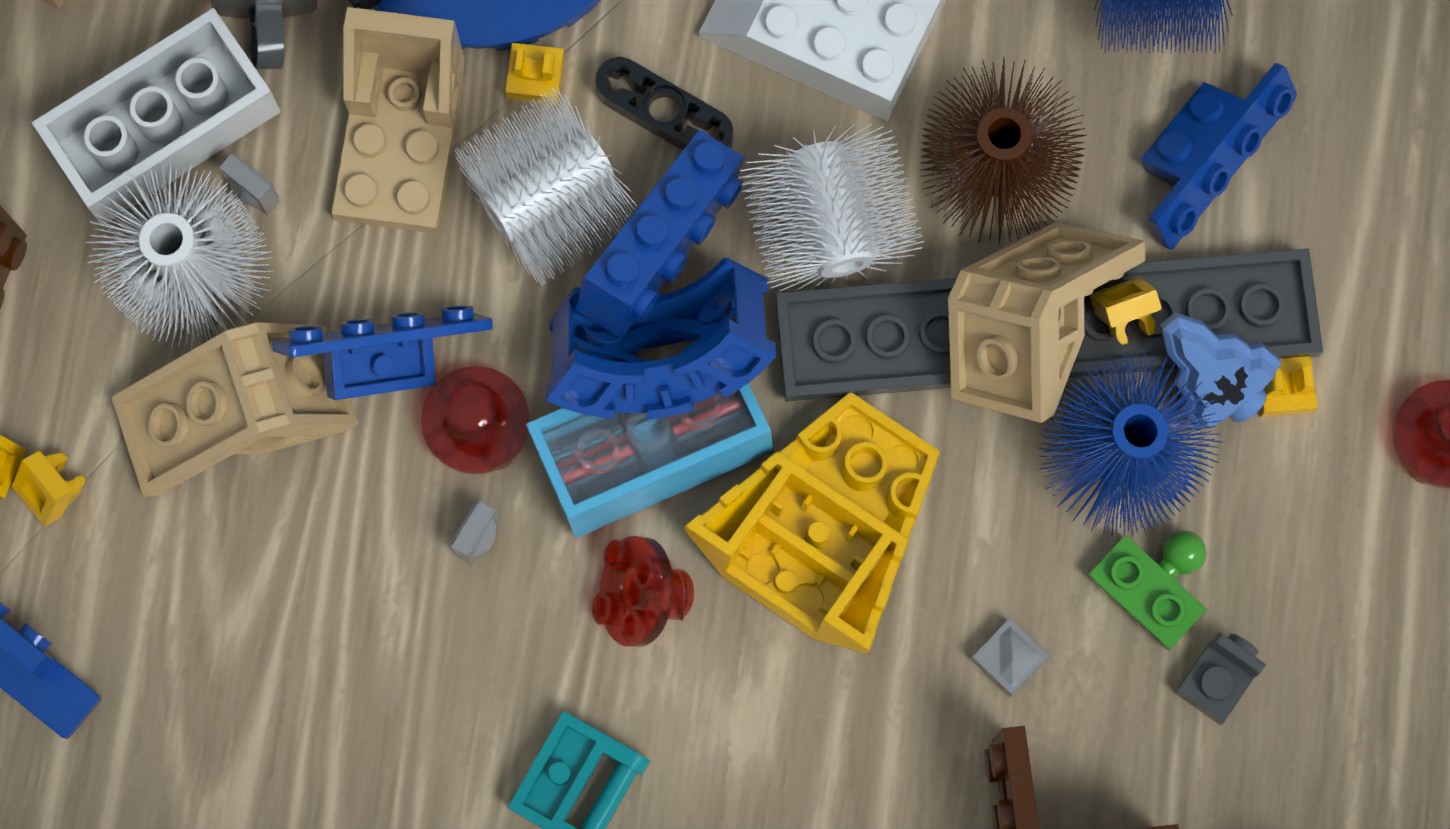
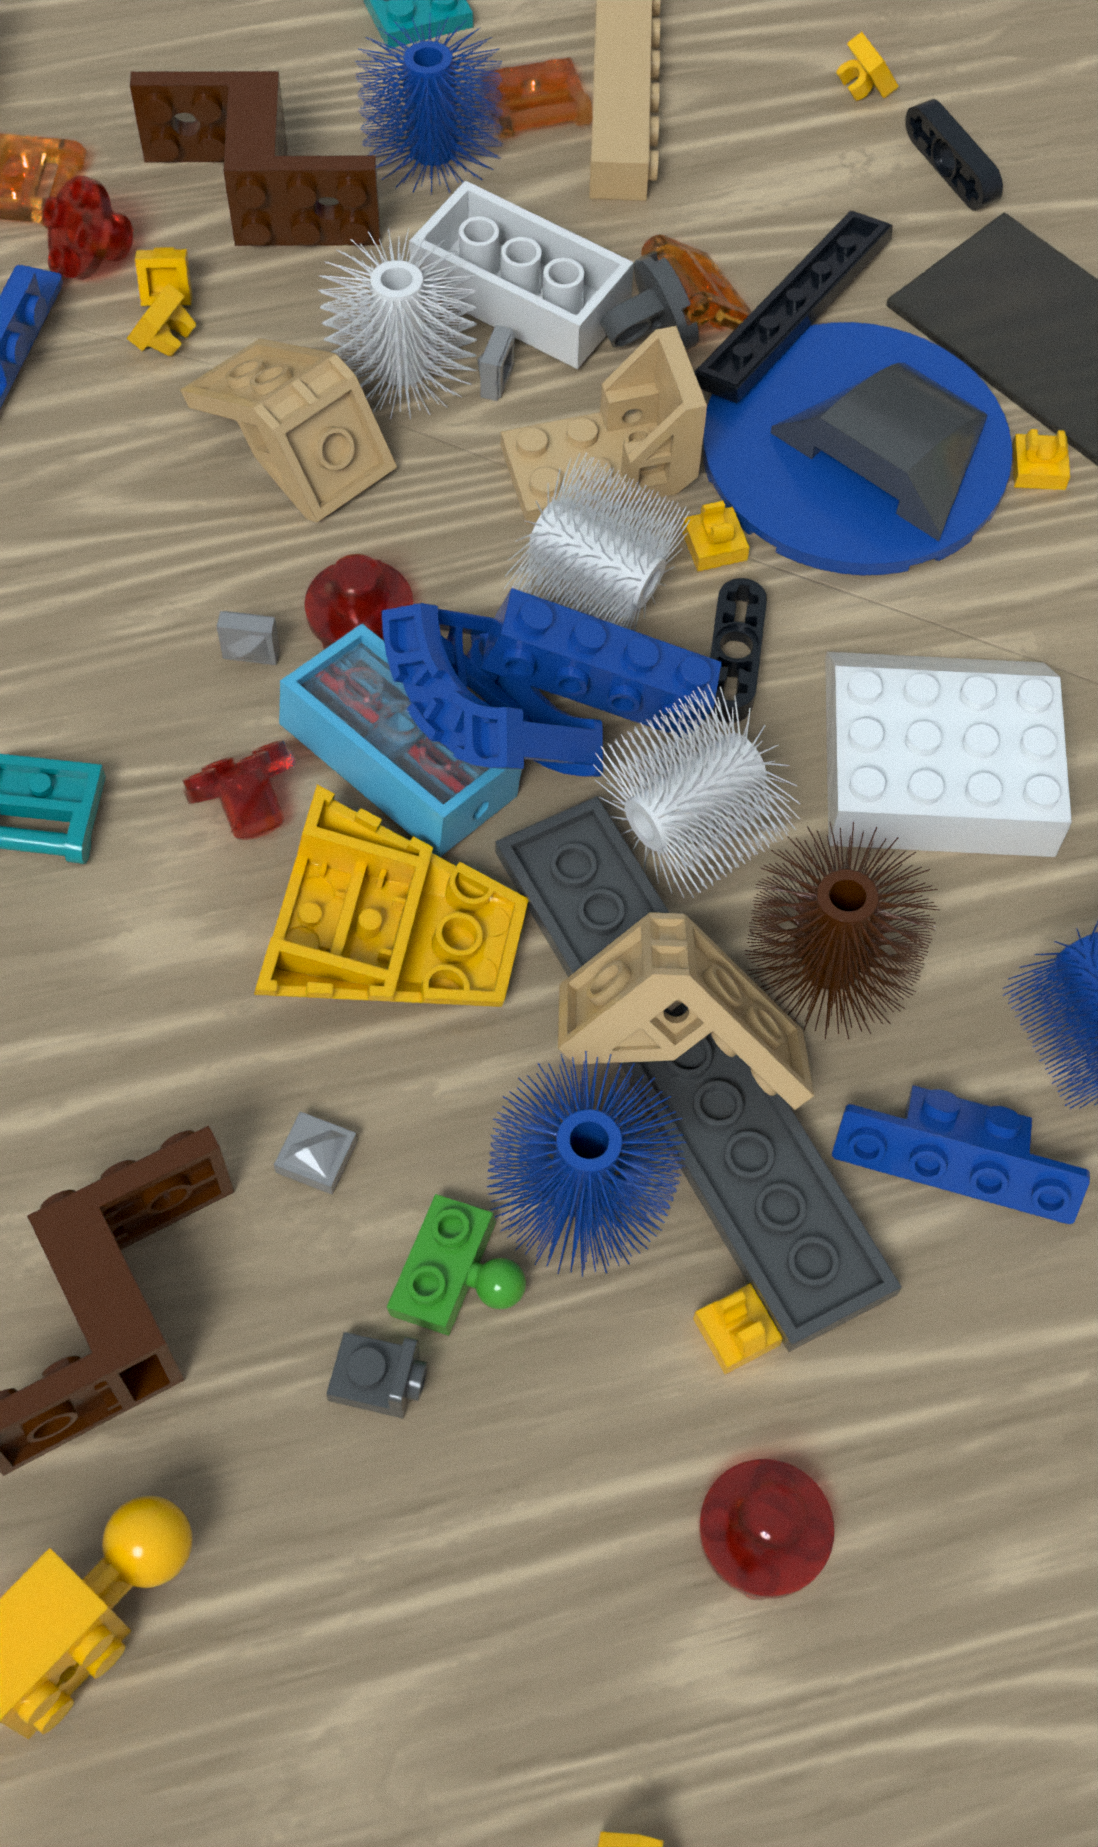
camera: 65 degrees right, 15 degrees down
(380, 357) = (376, 497): blue bracket -> none
(1126, 303) = (738, 1107): yellow tile -> none
(1227, 366) = (711, 1230): medium blue rock -> none

